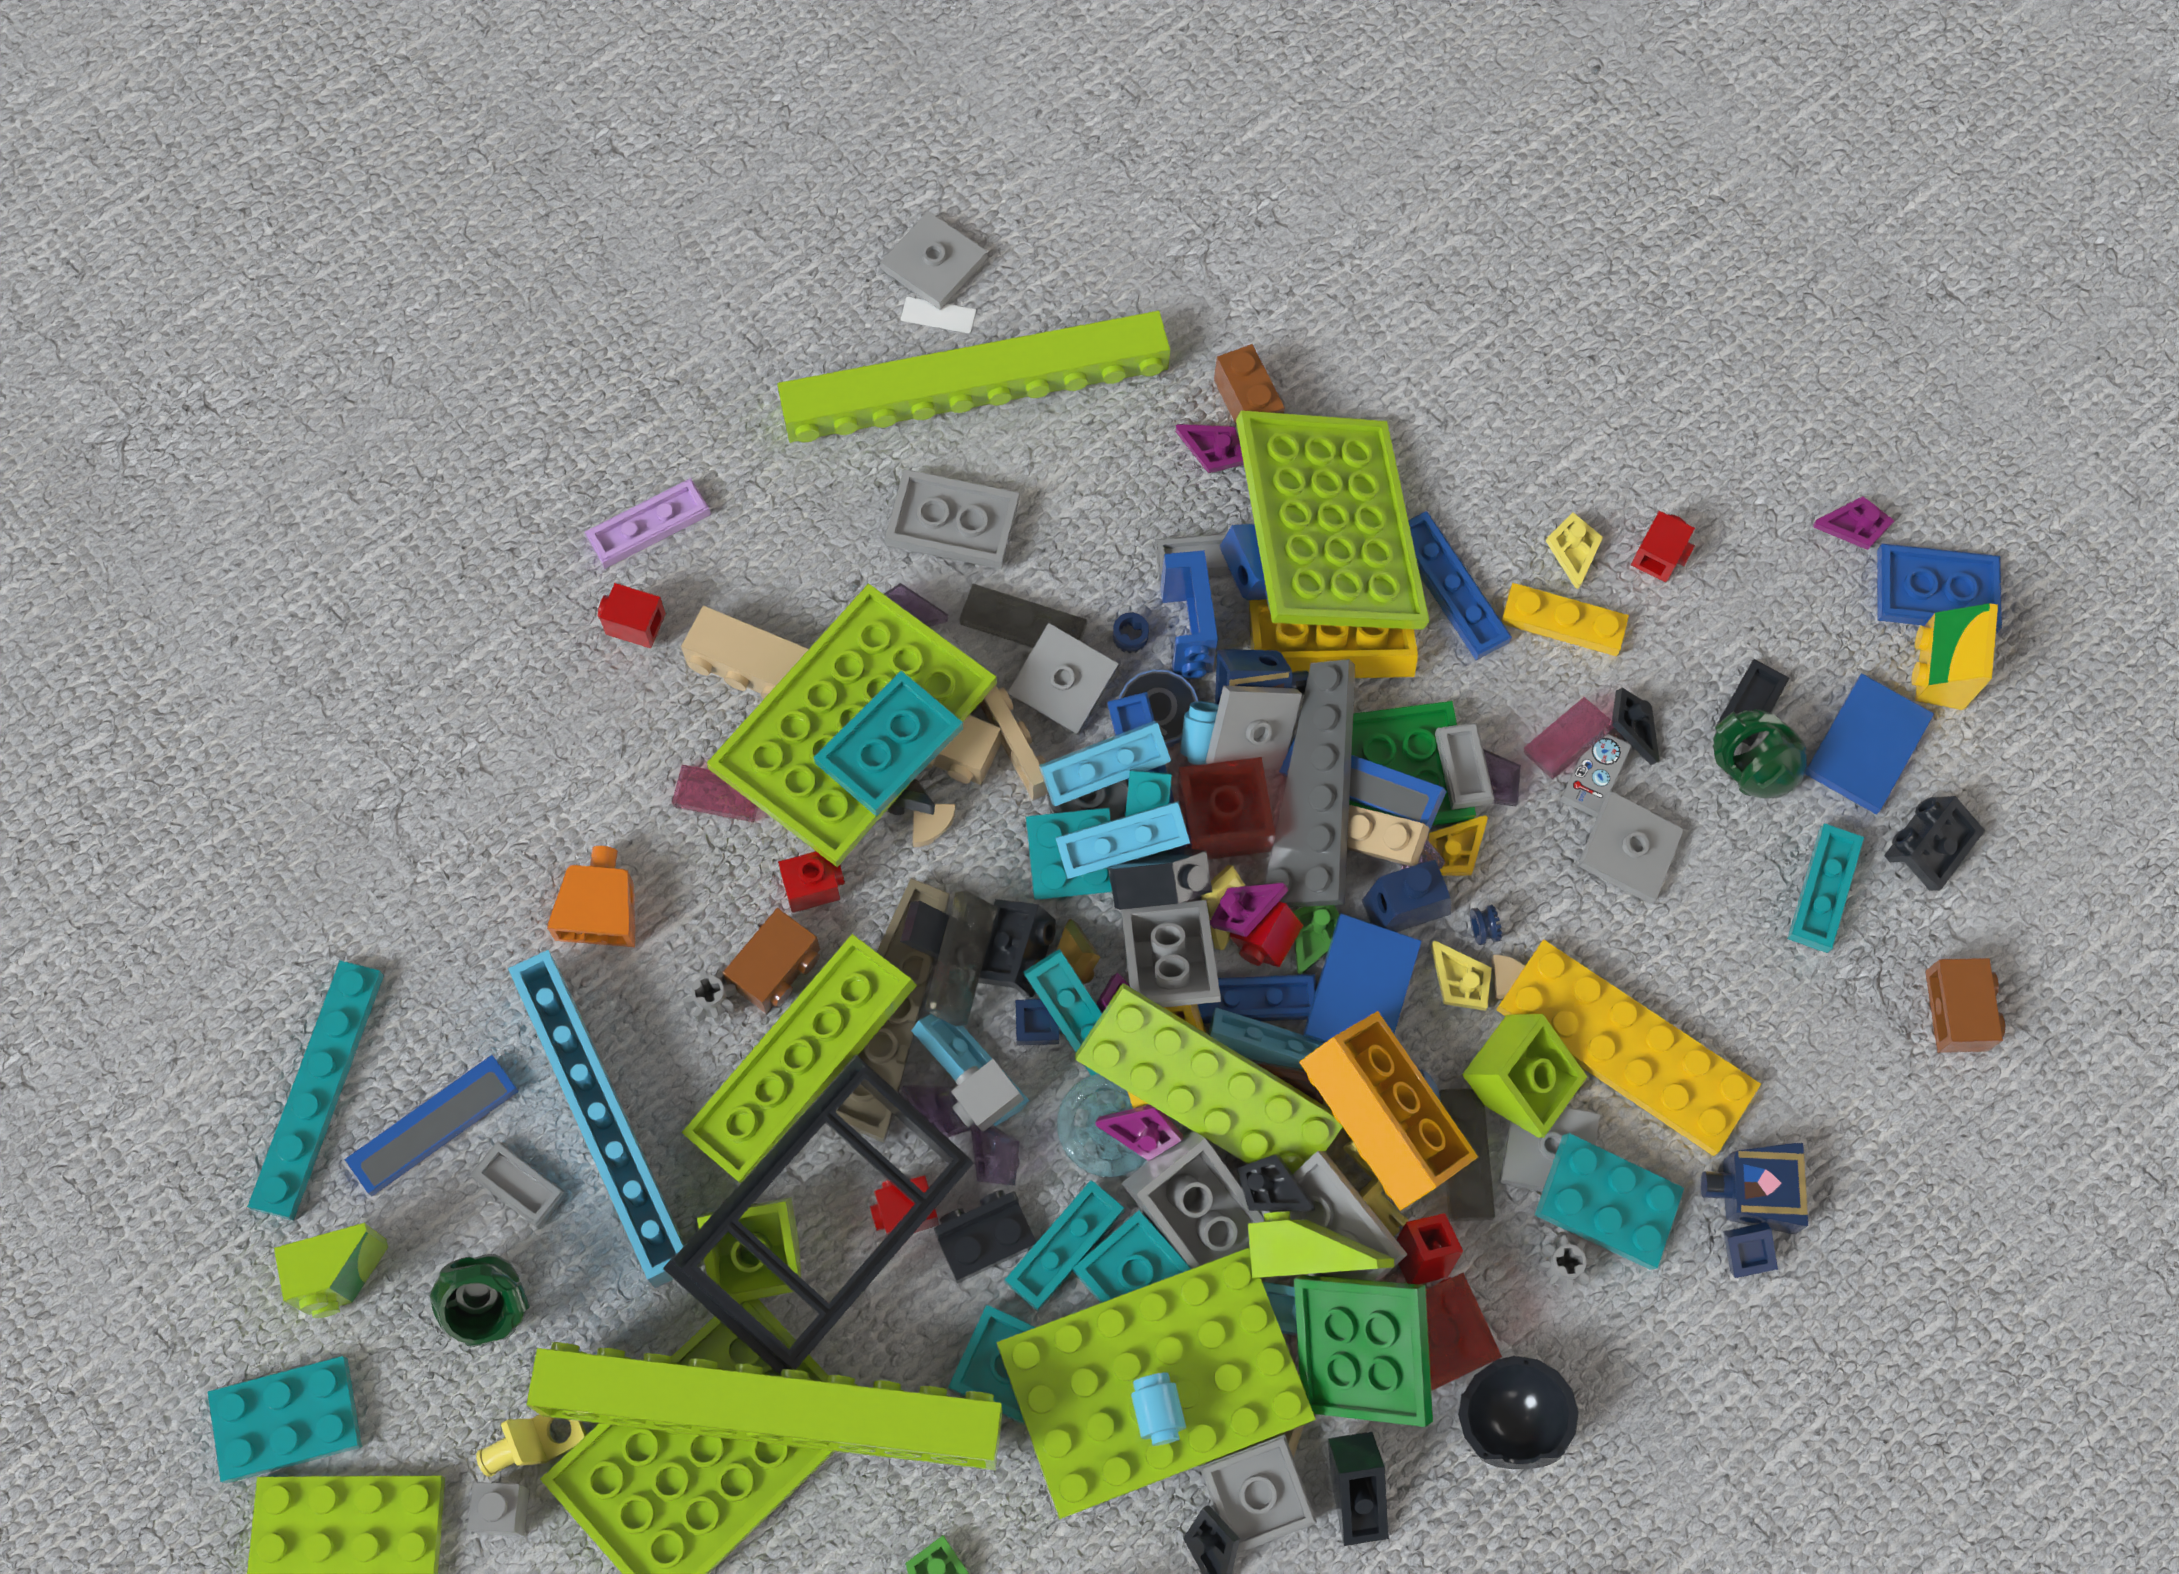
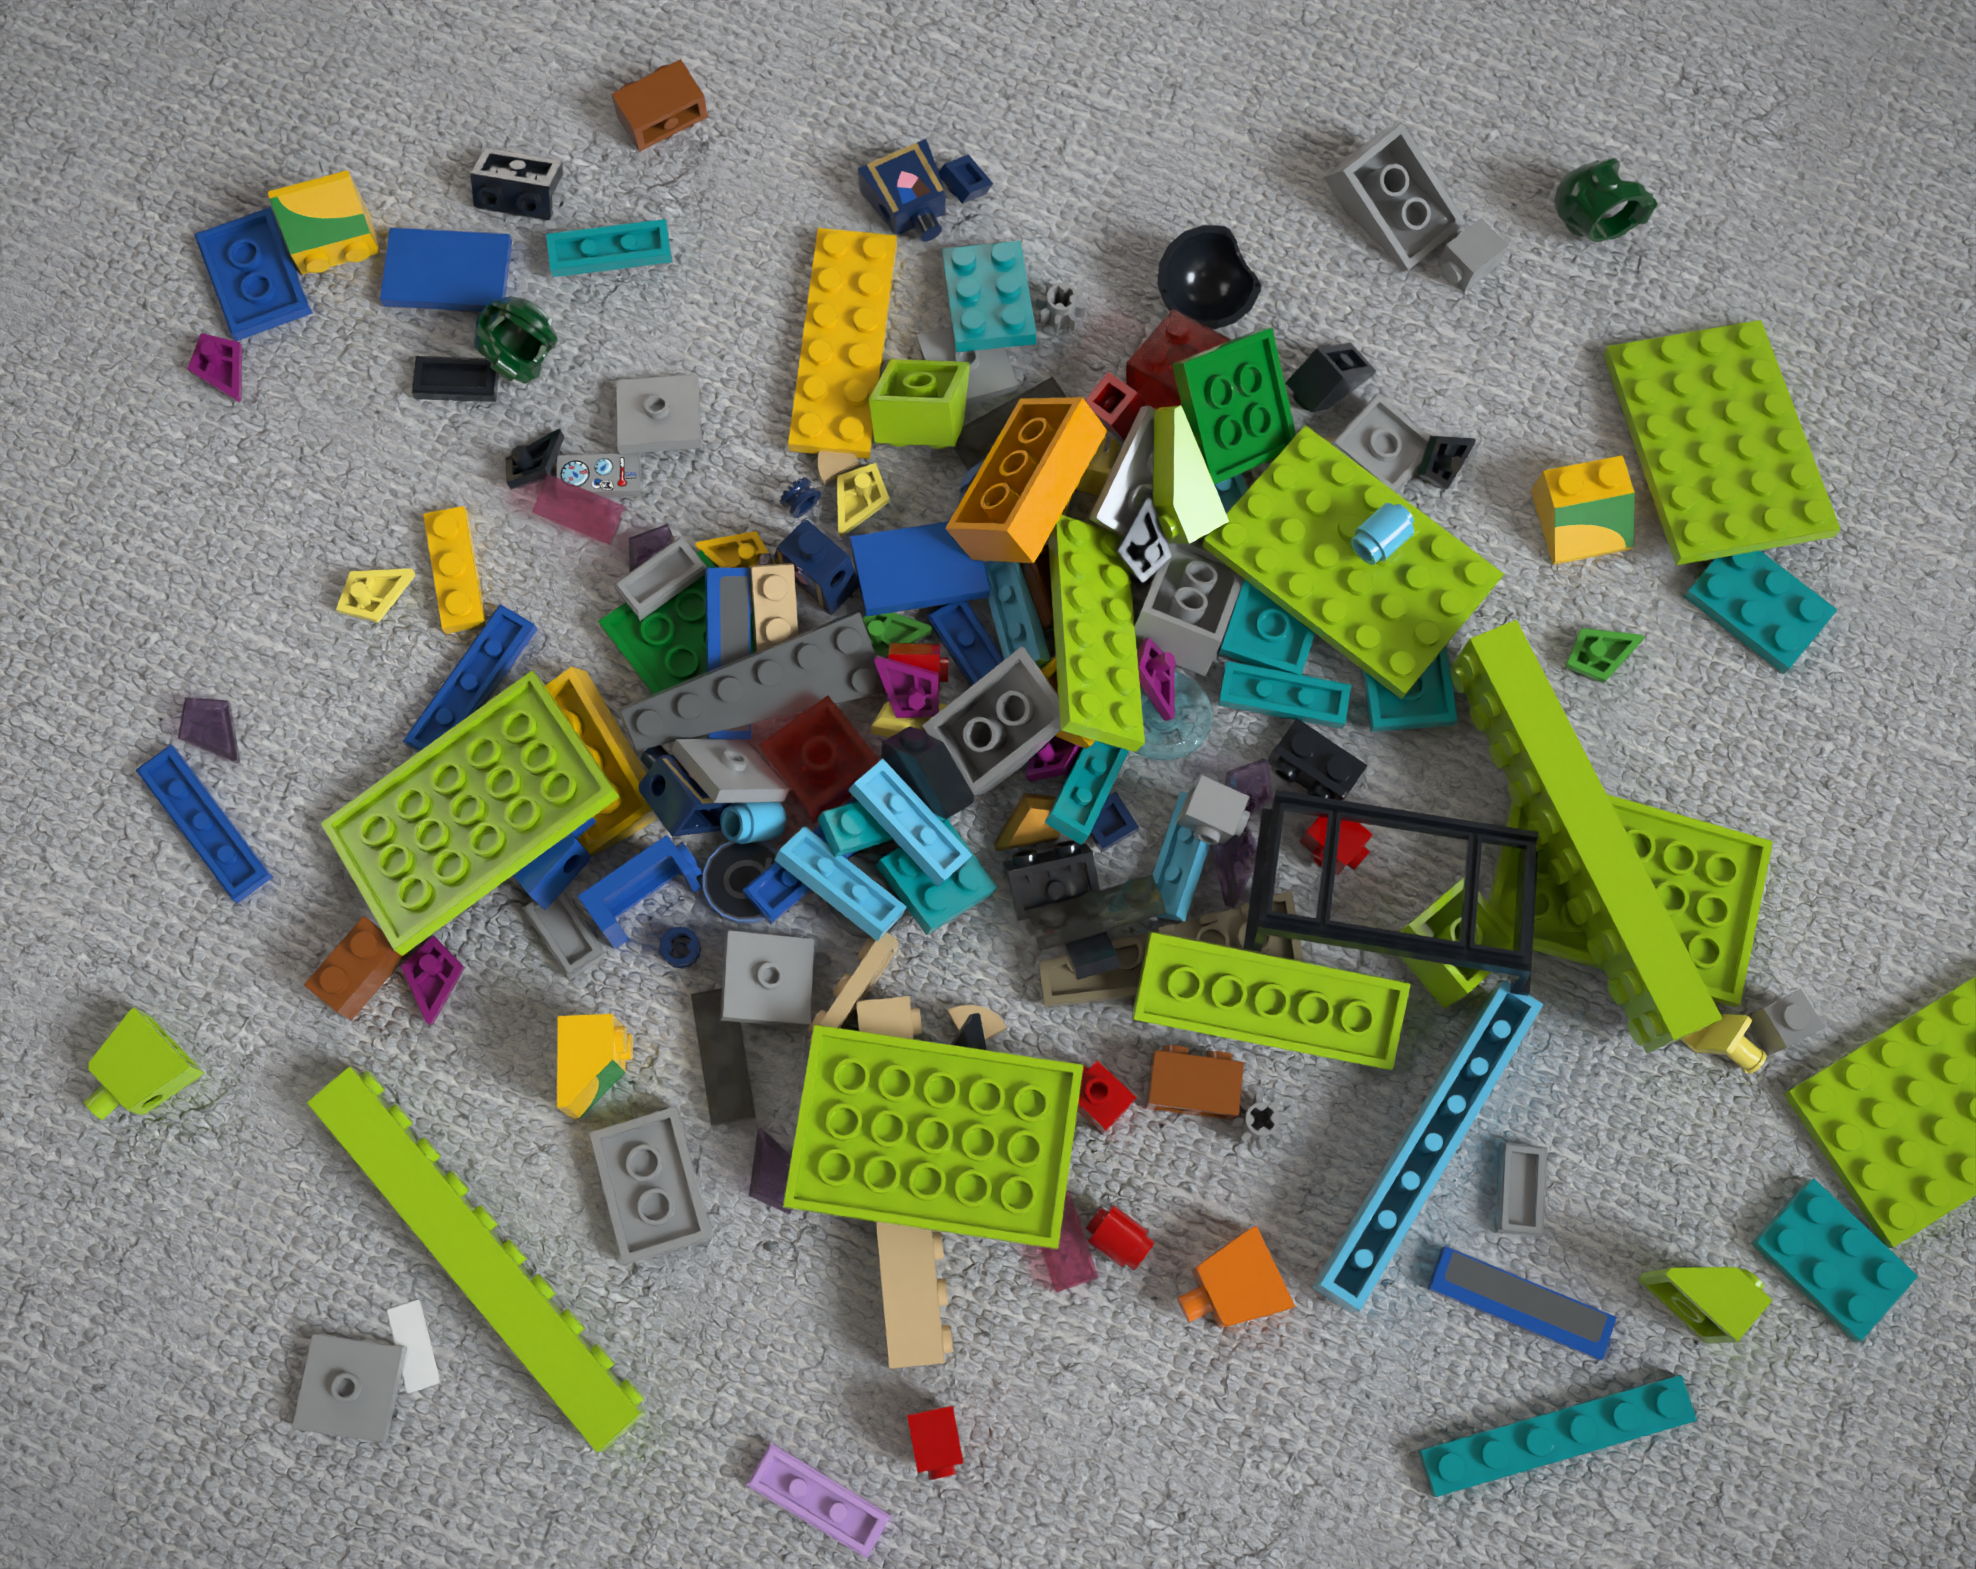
camera: 120 degrees left, 5 degrees up
(479, 1299) = (1647, 1153): dark green helmet -> none
(691, 833) = (1119, 1237): none -> red brick
(888, 743) = (944, 1079): teal plate -> none
(1075, 511) = (589, 1059): none -> yellow slope
(1259, 223) = (138, 1067): none -> lime torso
(1435, 346) = (204, 823): none -> blue tile
(1515, 381) = (210, 727): none -> clear purple piece
(1664, 546) = (332, 513): red brick -> none

